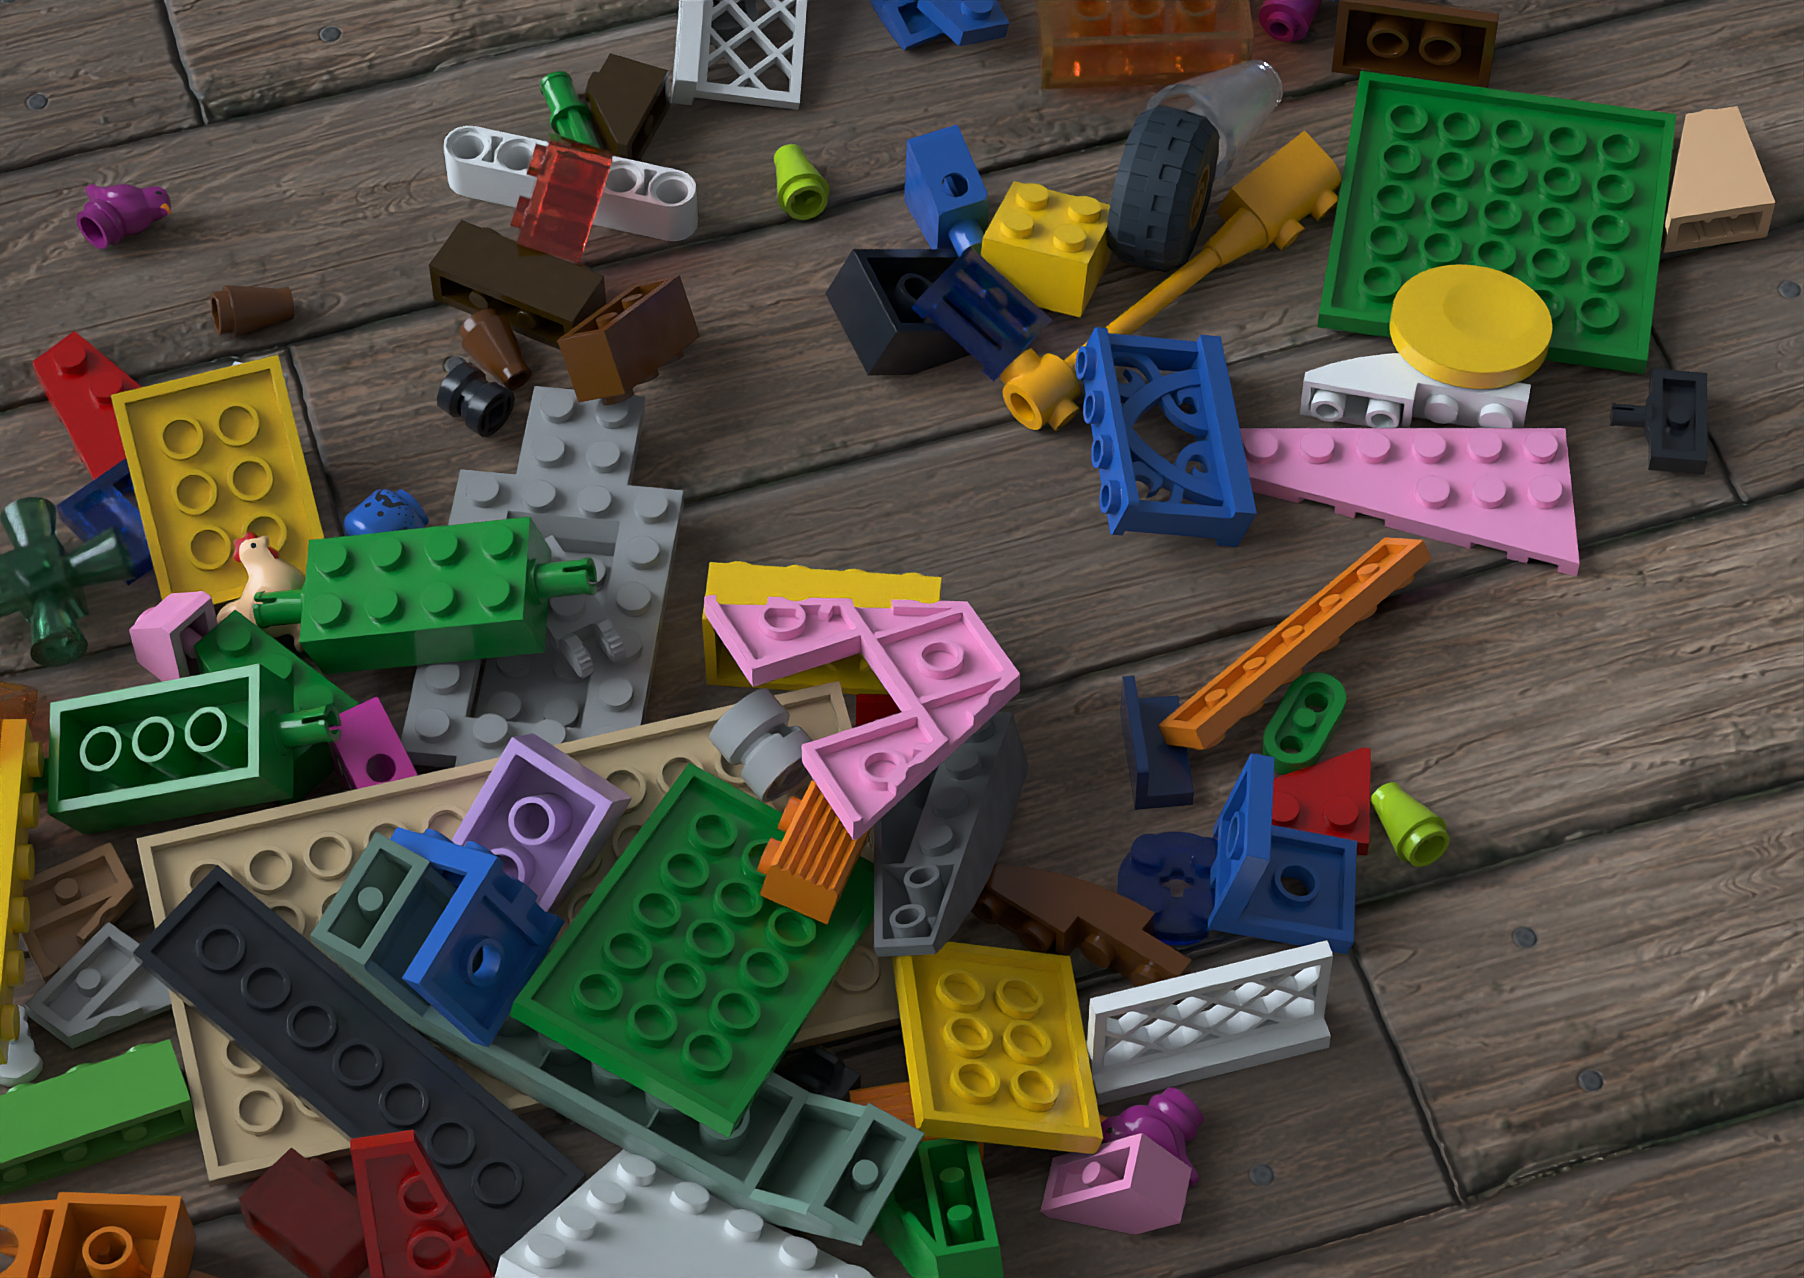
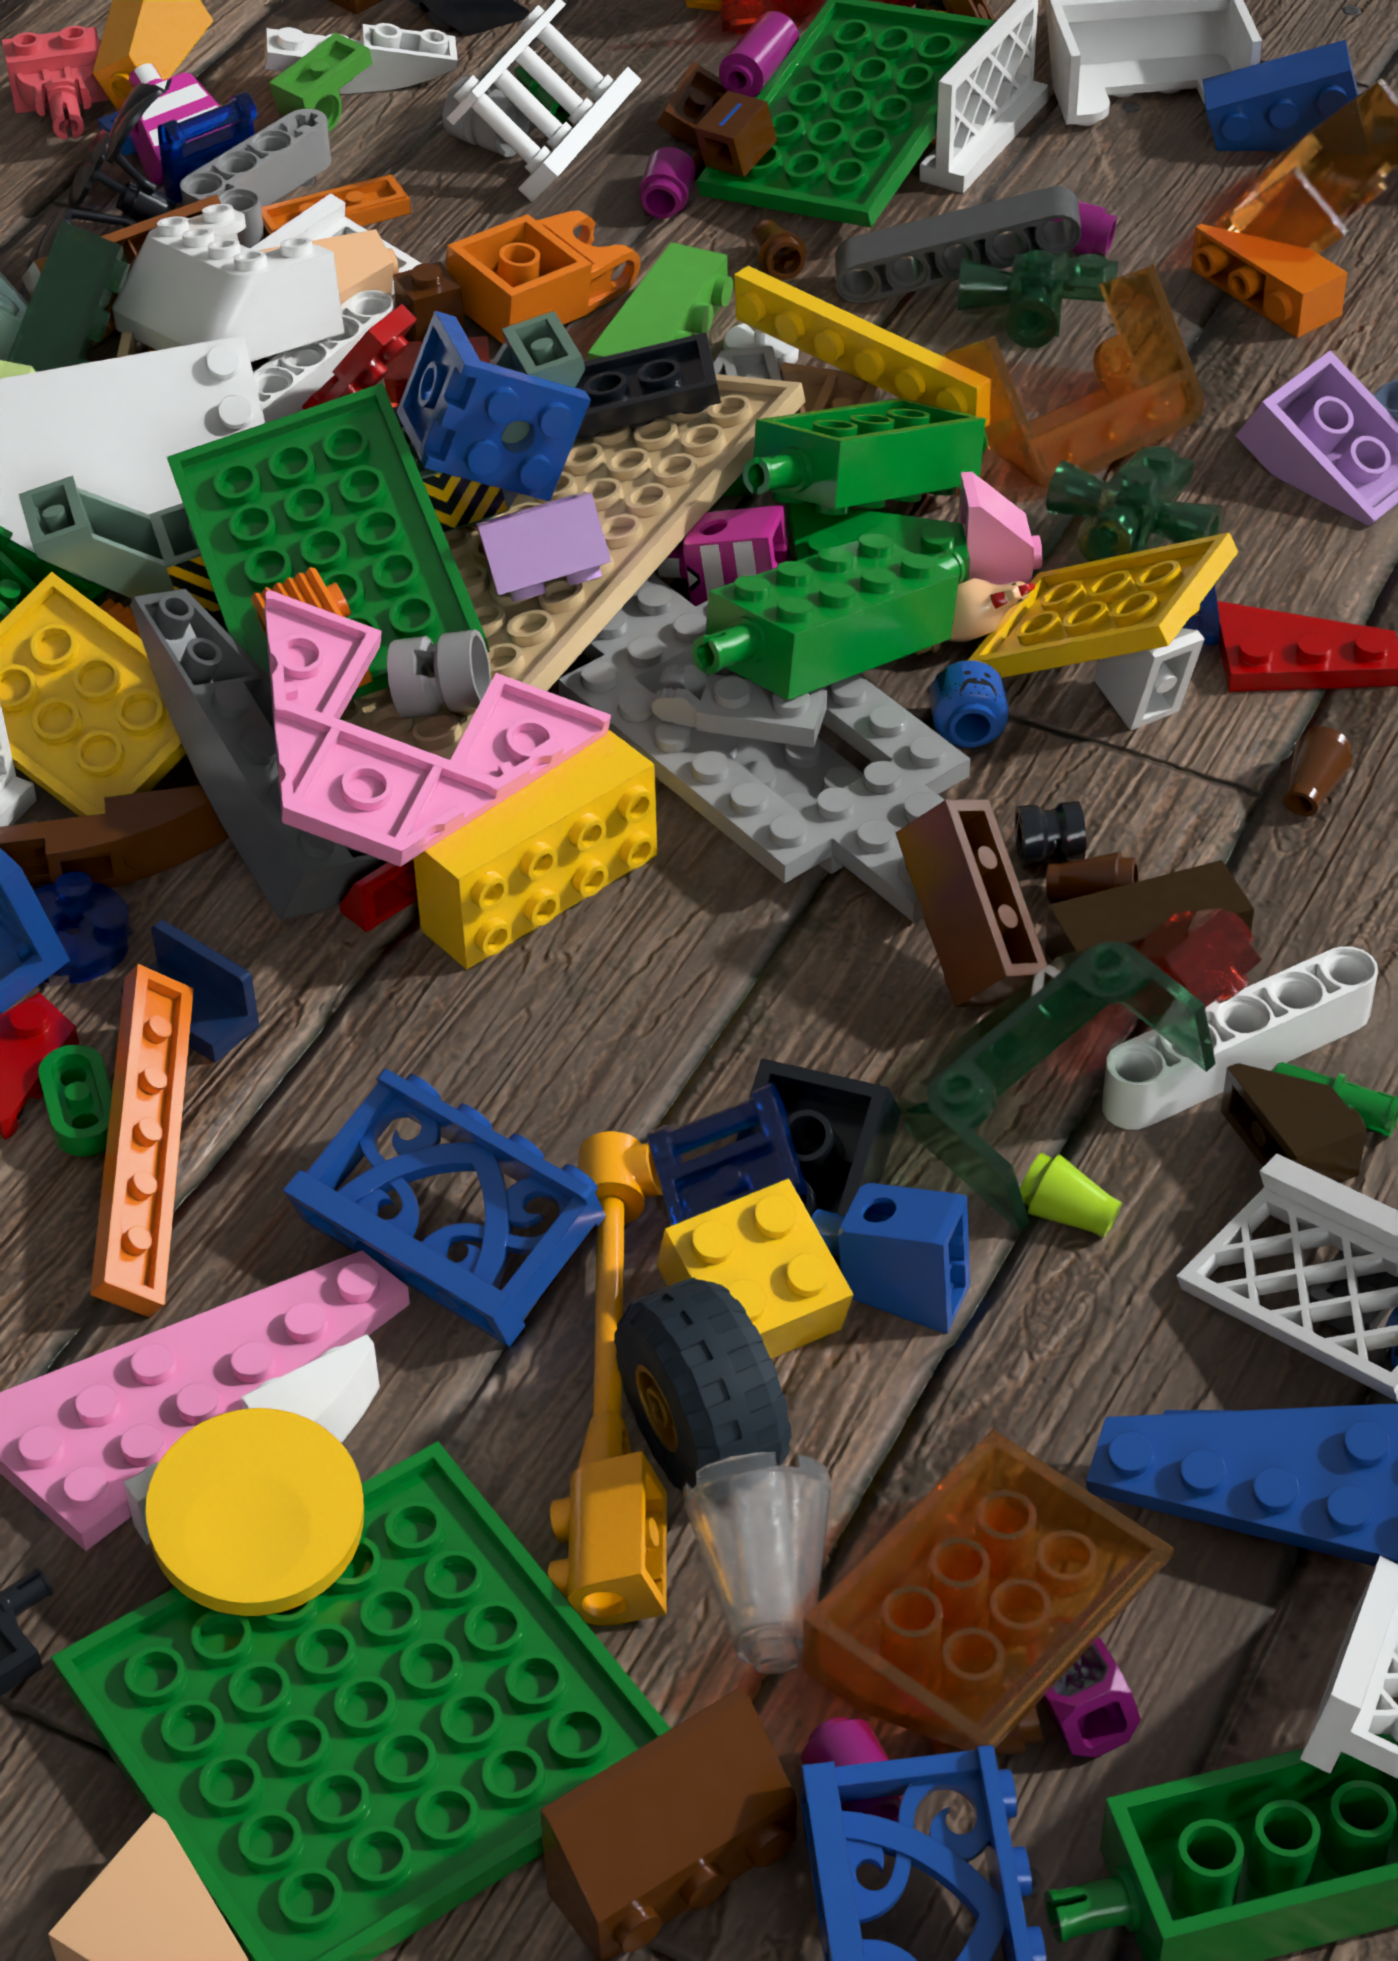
camera: 135 degrees right, 10 degrees down
(723, 246) = (965, 1080): none -> clear green windscreen

